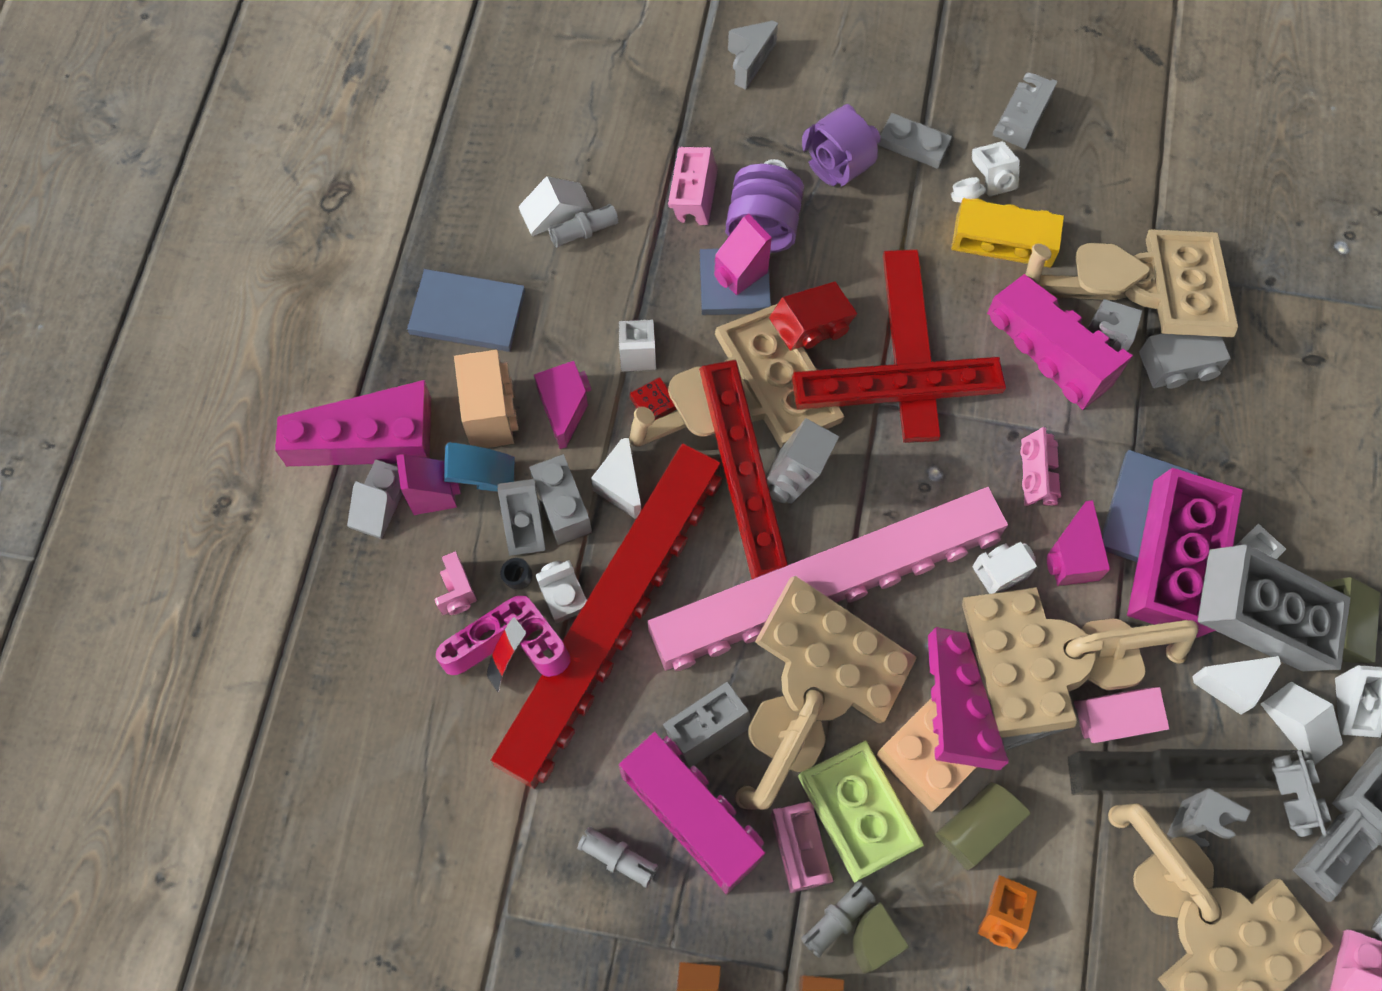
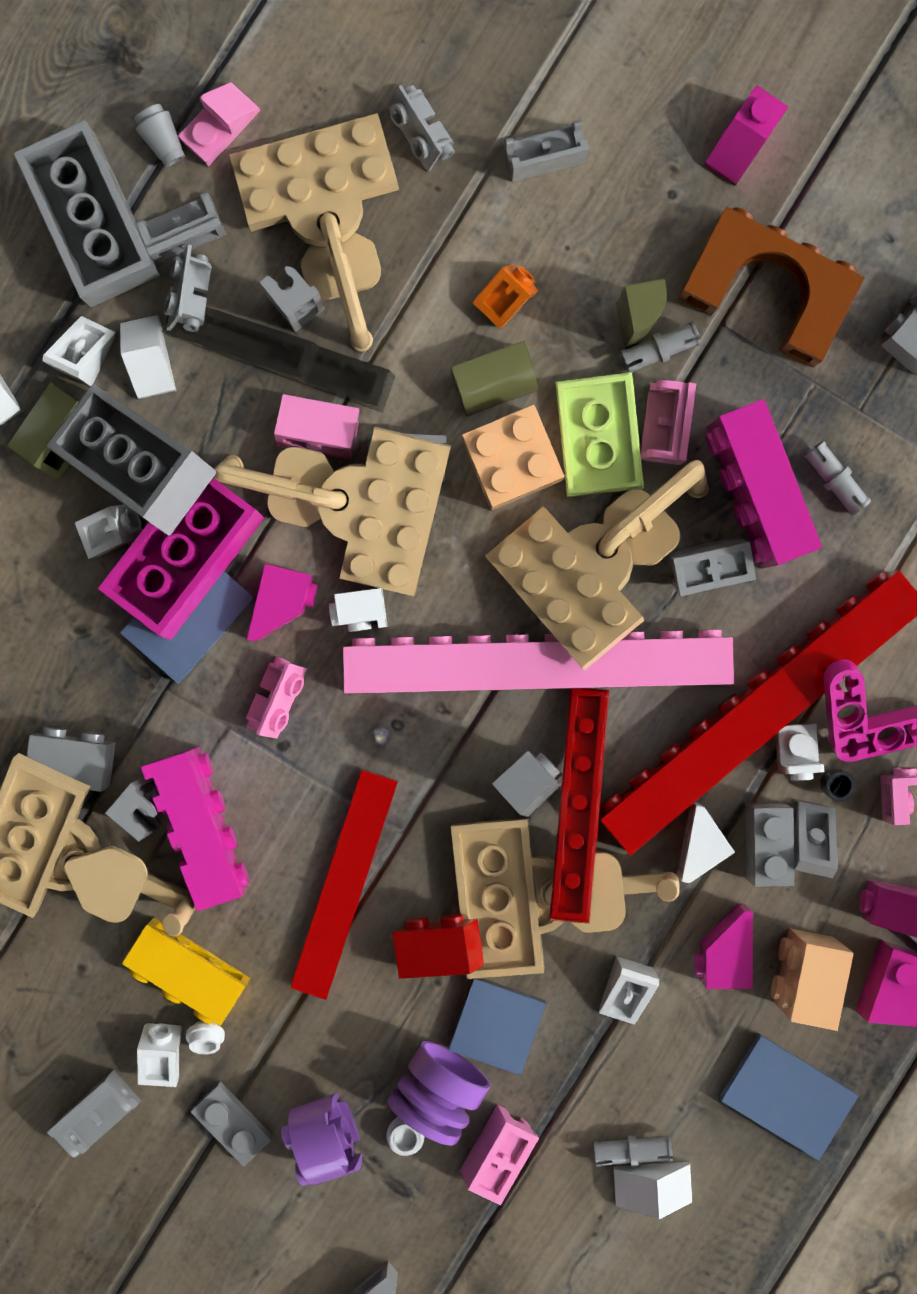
camera: 155 degrees left, 20 degrees up
(477, 466) = (840, 906): dark azure slope -> none
(503, 651) = (878, 708): sticker -> none
(654, 397) = (637, 921): red tile -> none
(743, 256) = (489, 1040): dark pink slope -> none
(898, 382) = (380, 841): red tile -> none
(964, 714) = (477, 469): dark pink wing -> none
(1238, 683) = (188, 412): white slope -> none

